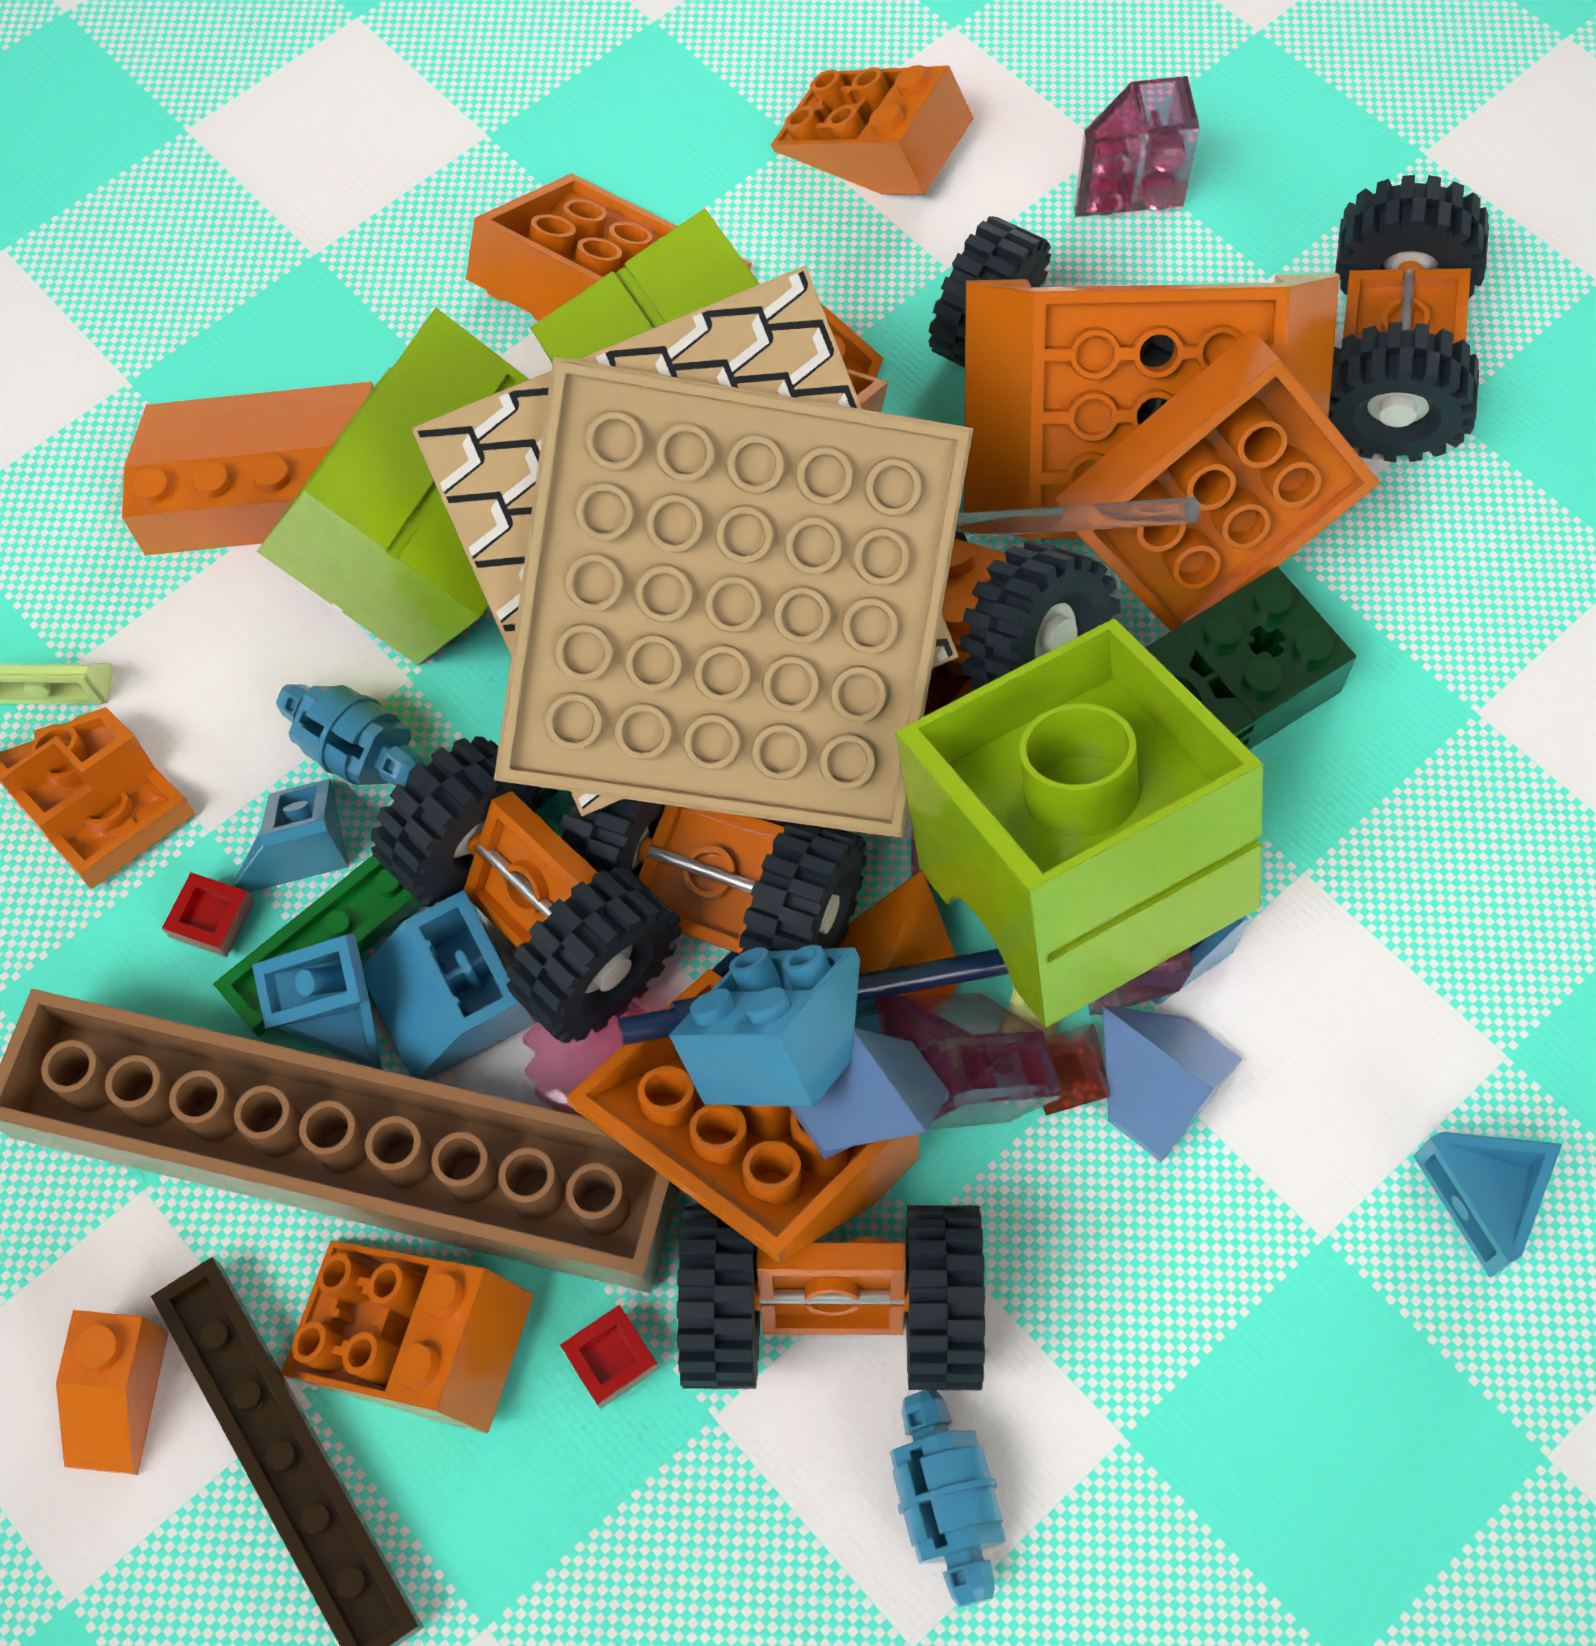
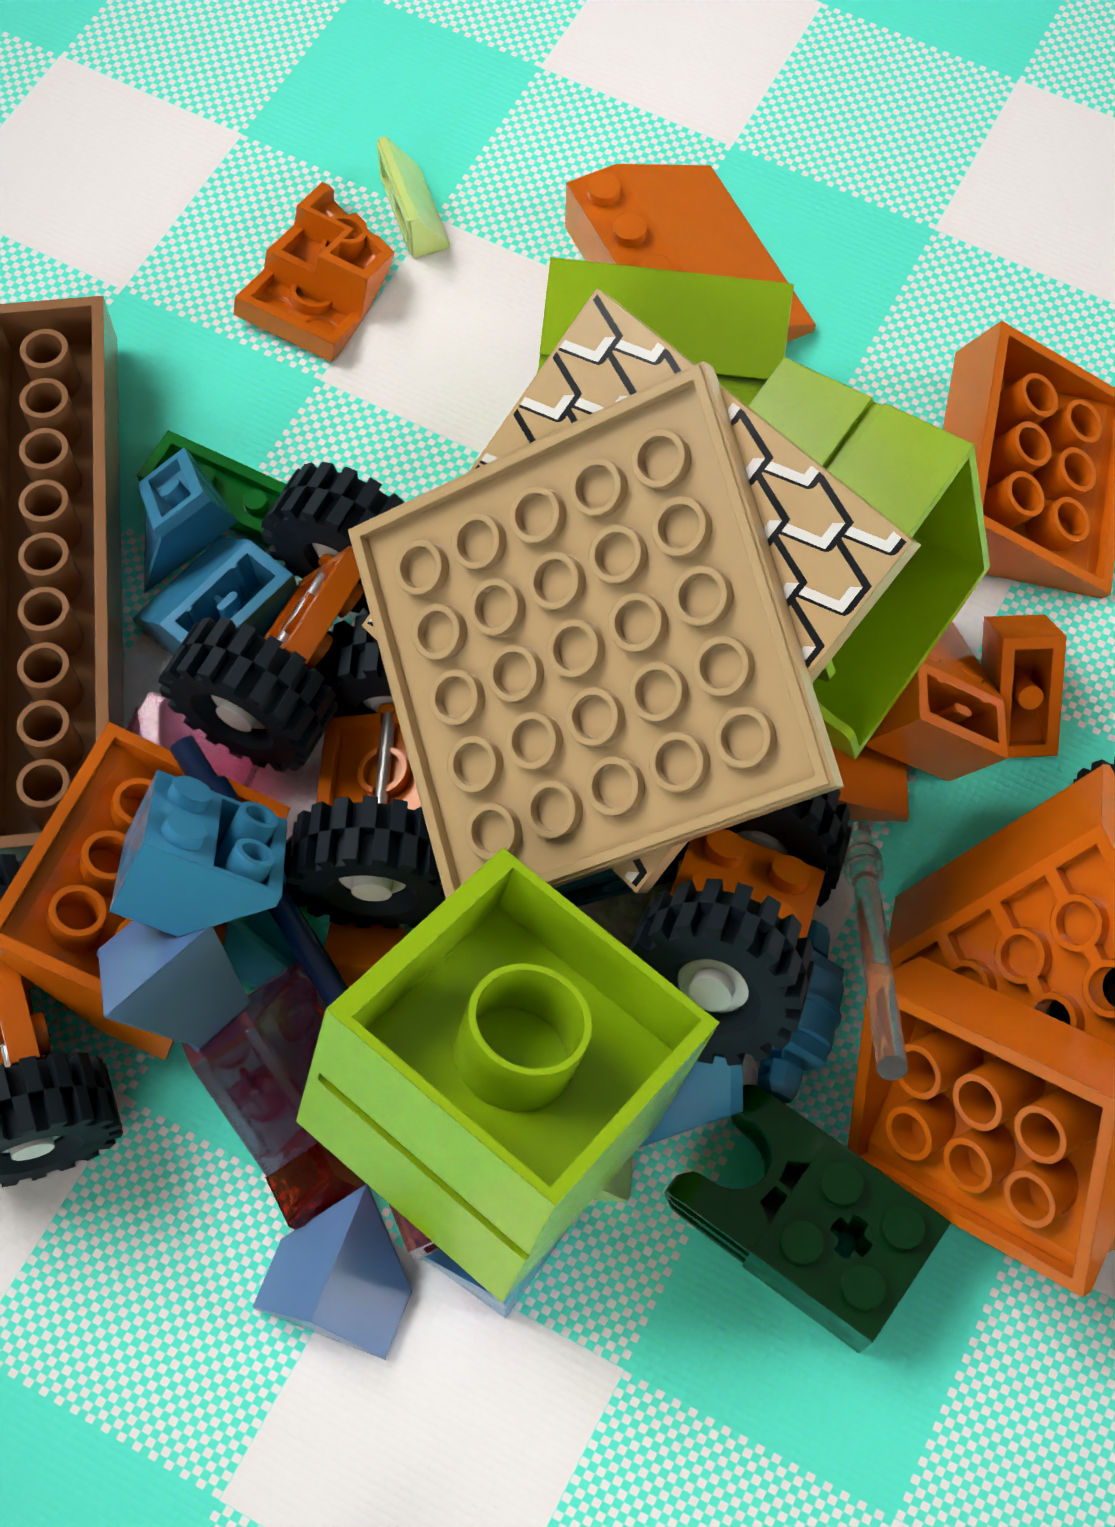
camera: 65 degrees right, 0 degrees up
(208, 914) = (234, 405): red plate -> none
(296, 838) = (333, 434): dark azure slope -> none
(348, 734) = (434, 436): dark azure piece -> none

